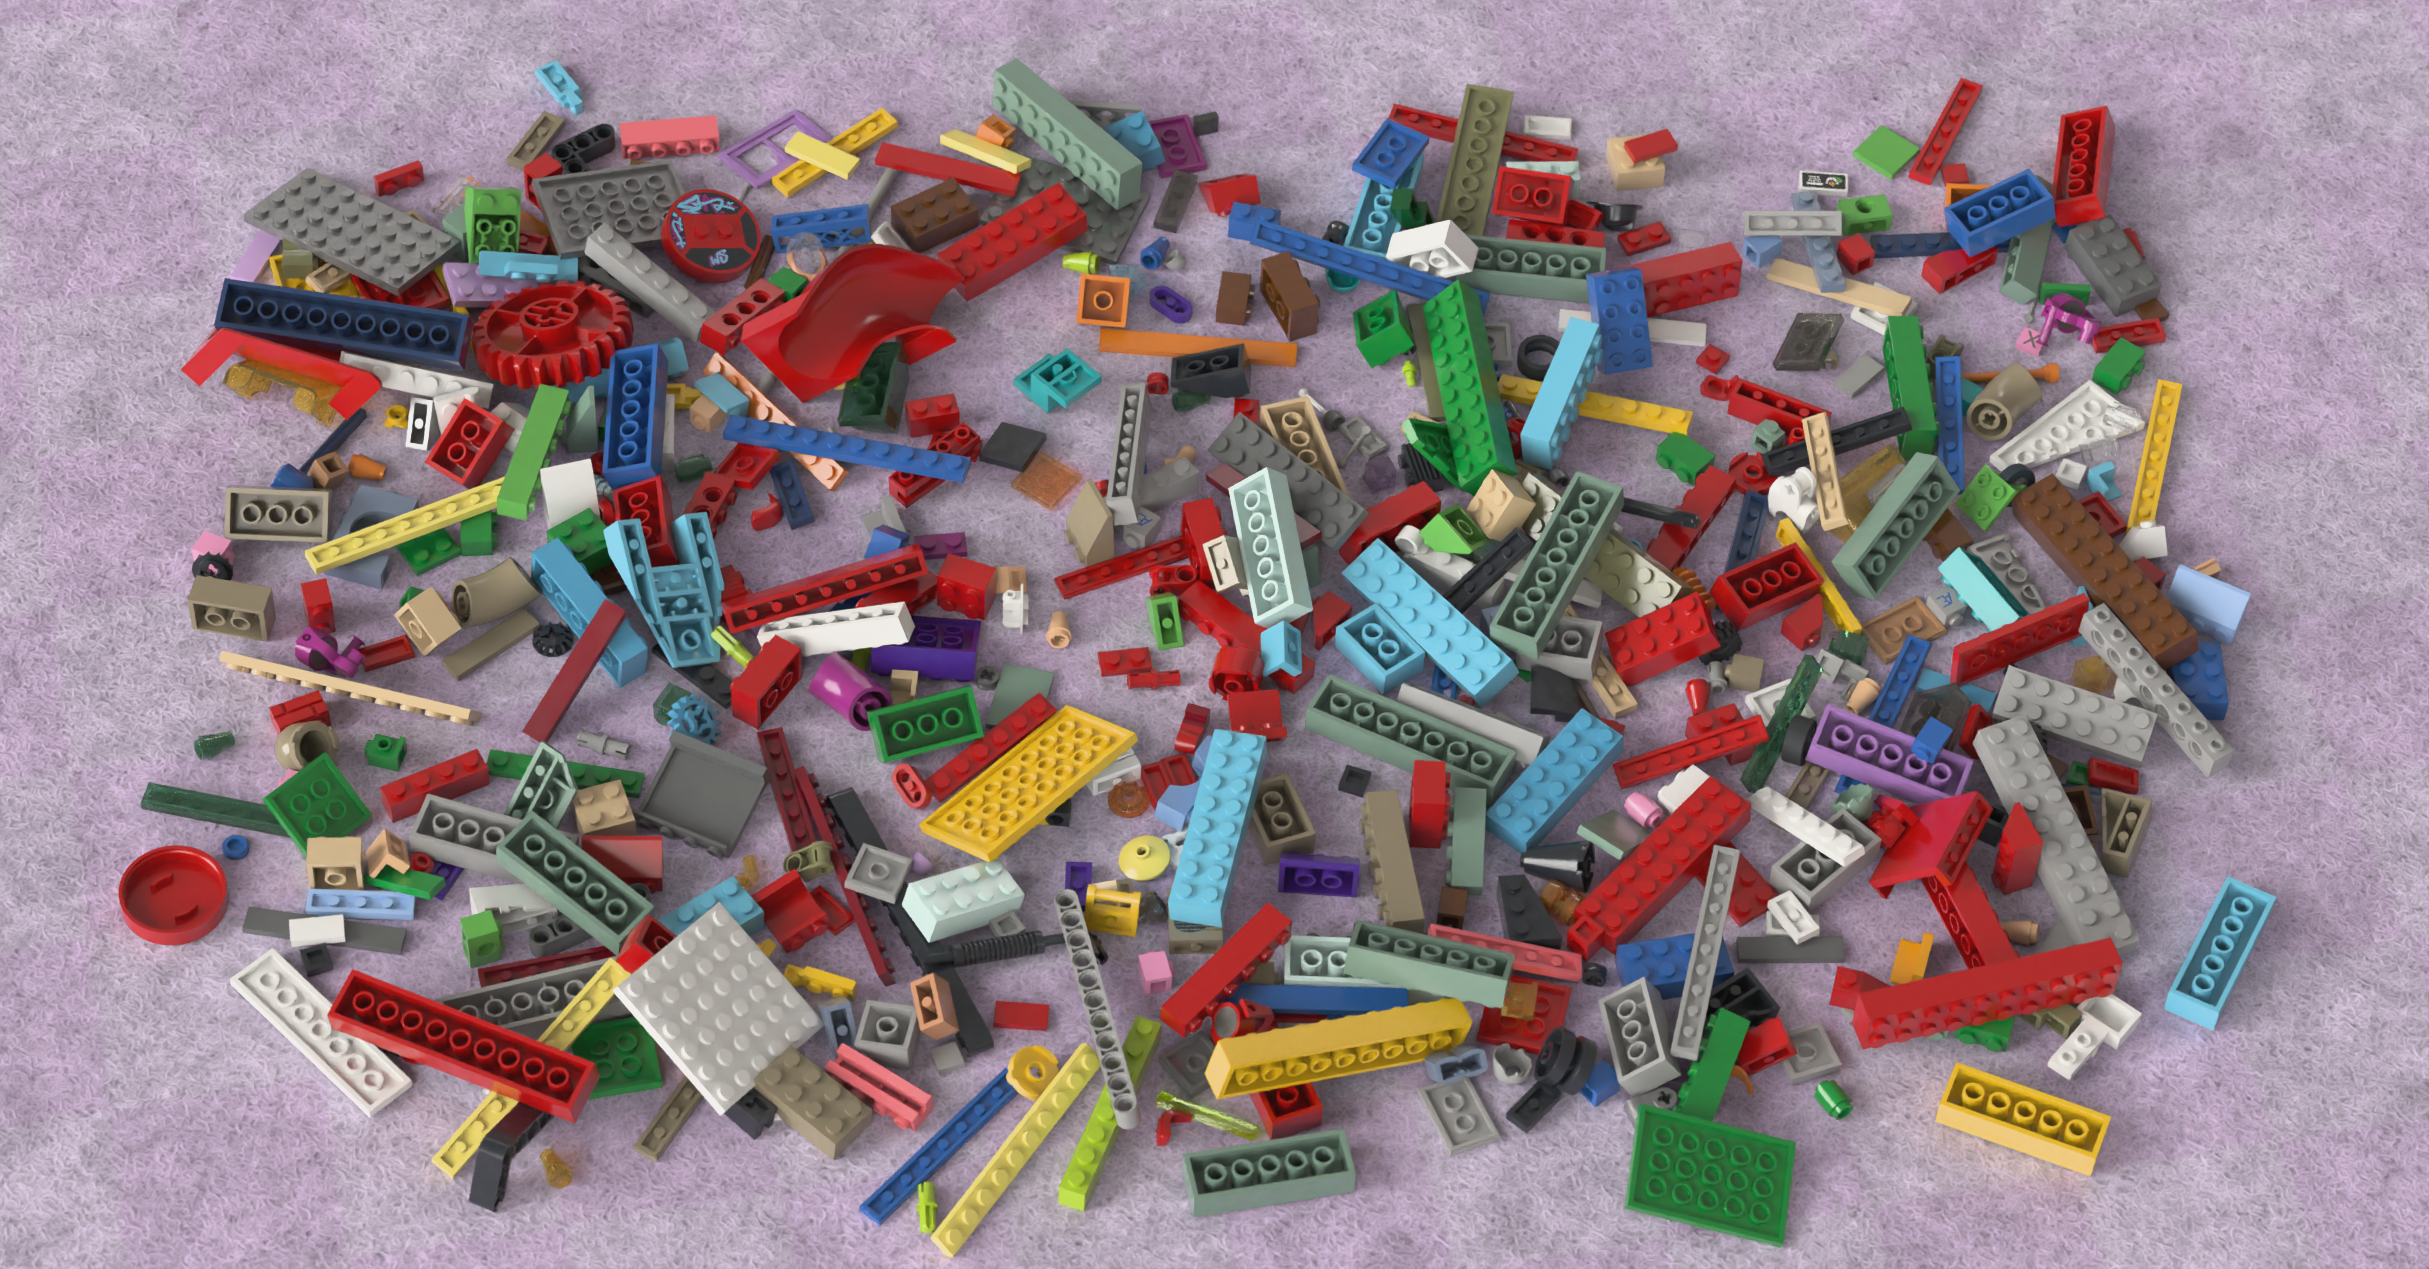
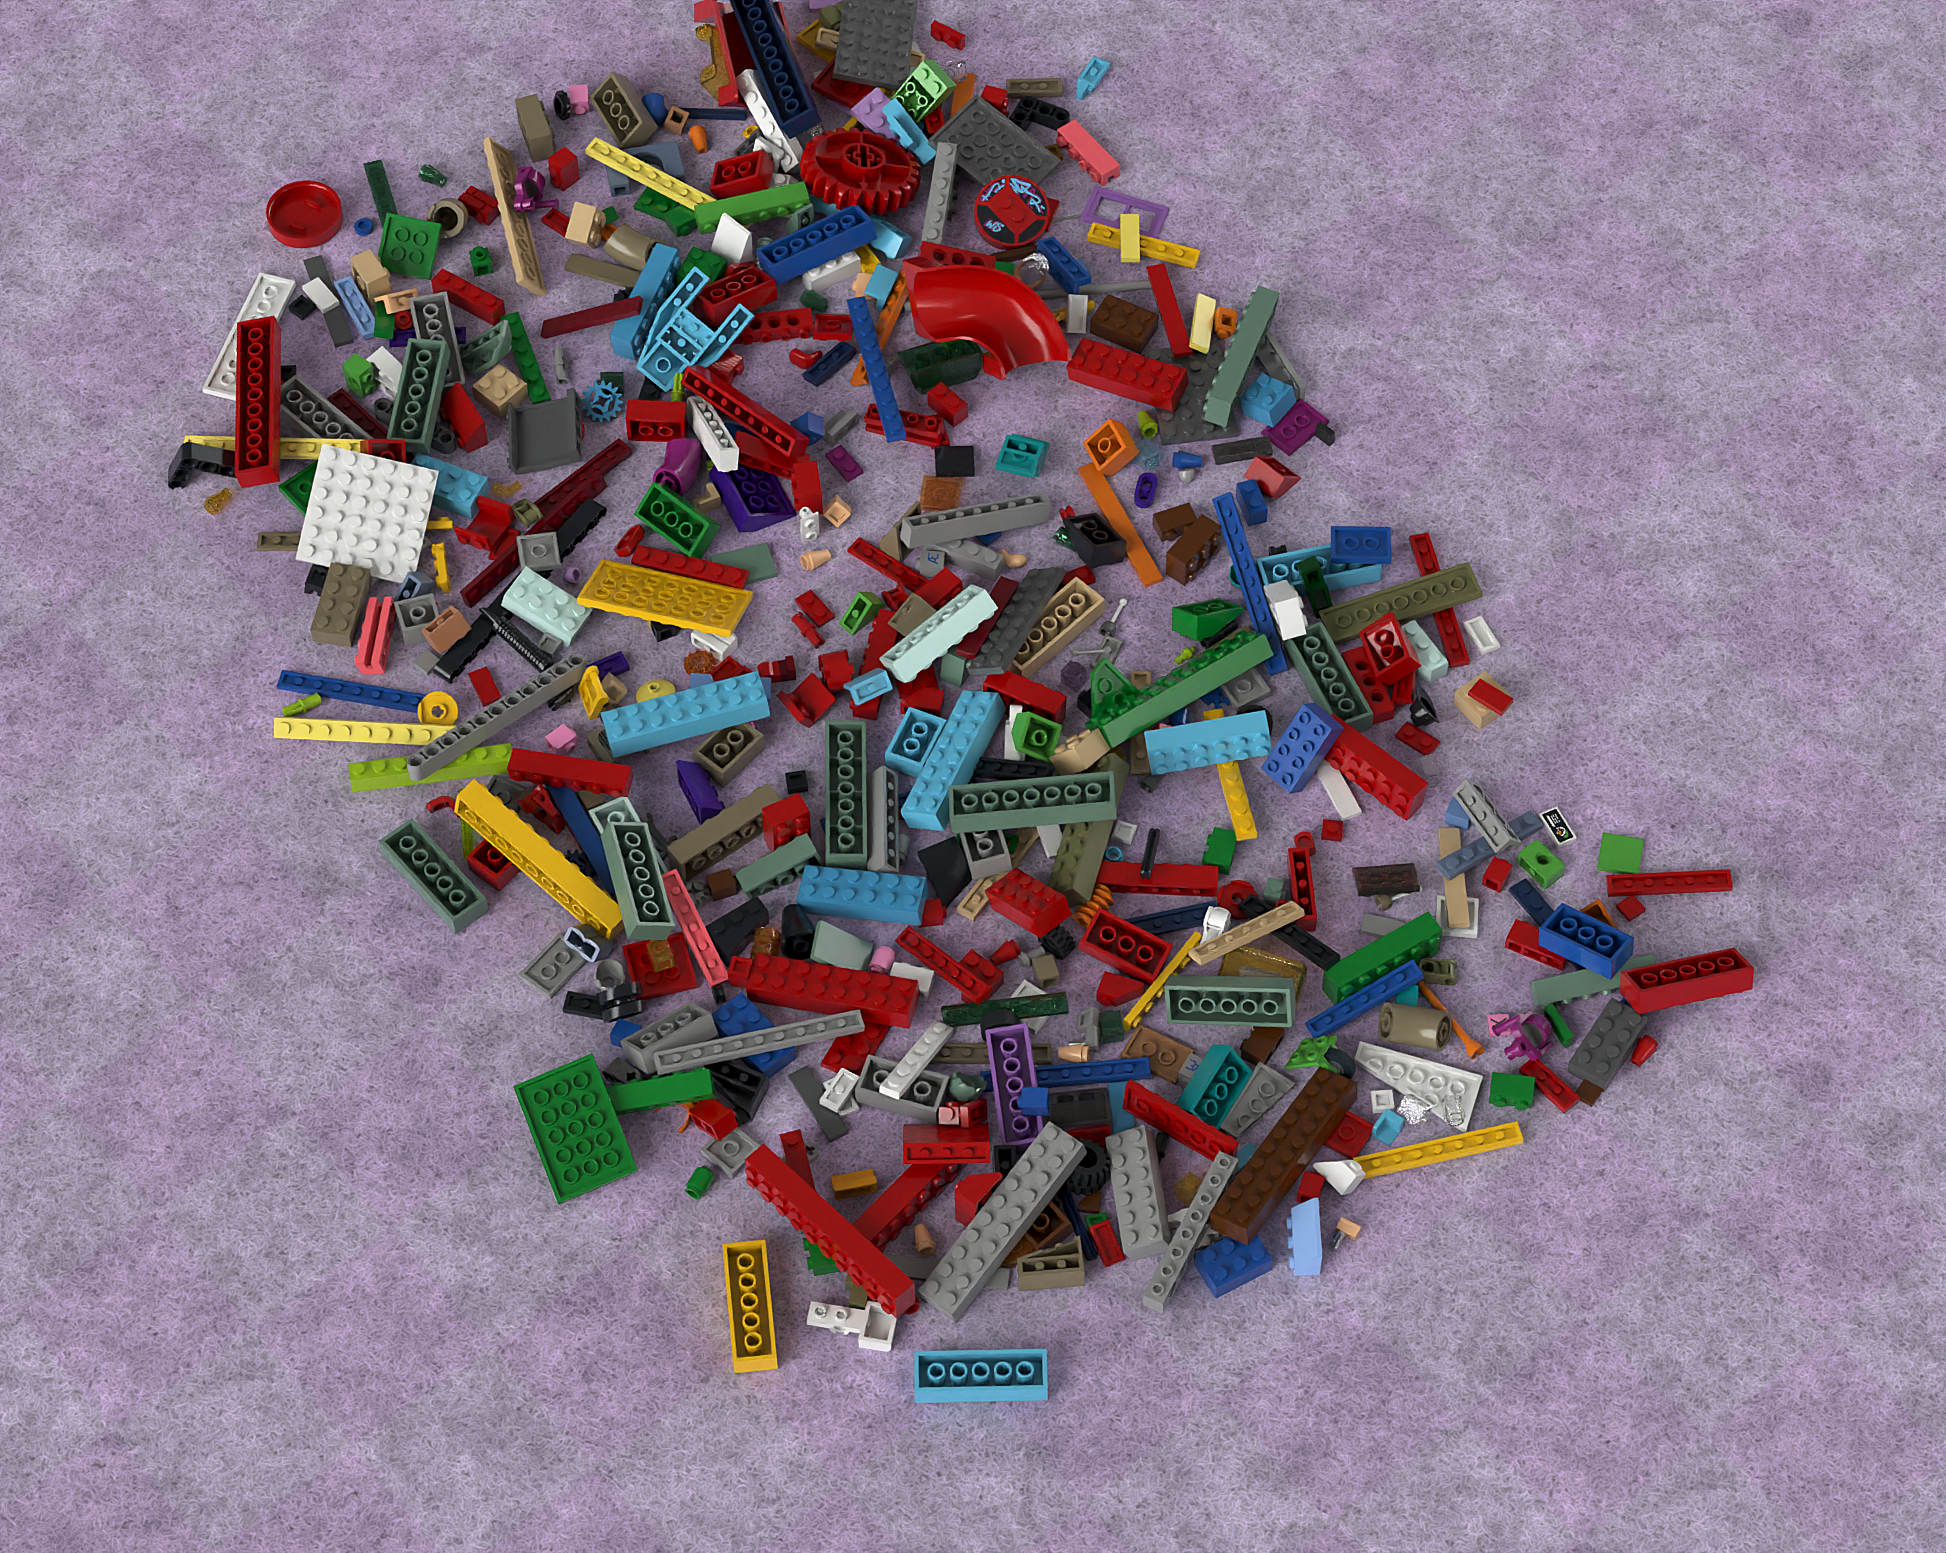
camera: 65 degrees right, 5 degrees up
(990, 672) = (748, 534): dark grey bush -> none

